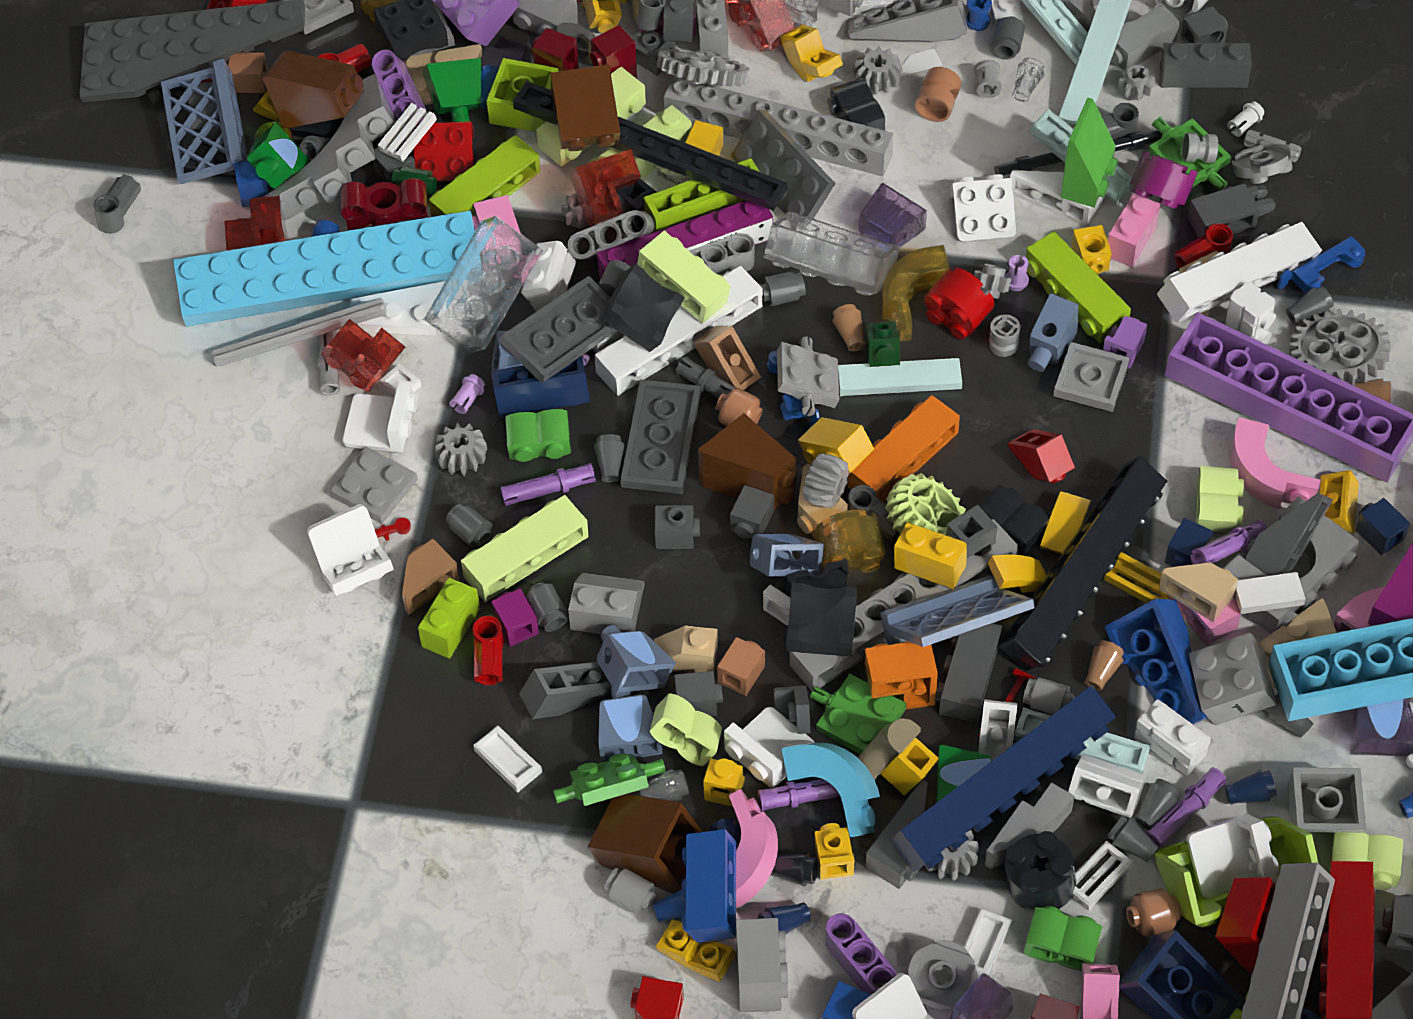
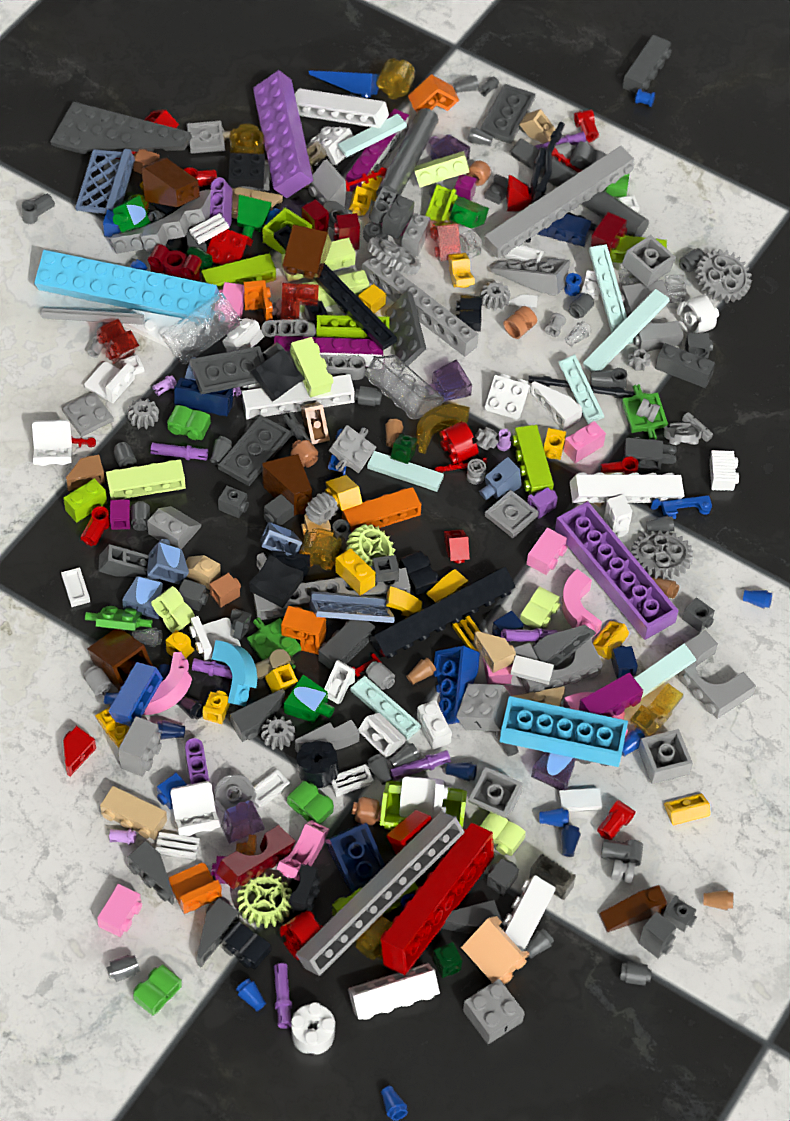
camera: 20 degrees right, 0 degrees up
(264, 227) = (103, 250): clear red brick -> none
(540, 203) = (258, 297): none -> orange bracket
(950, 353) = (441, 469): none -> red piece
(1002, 779) = (324, 705): dark blue brick -> none
(1088, 158) = (574, 388): bright green slope -> none
(1163, 179) = (616, 420): magenta brick -> none
(1176, 410) = (547, 551): none -> bright pink brick
(1251, 114) = (694, 404): white pin -> none
(1347, 192) = (723, 470): none -> white brick

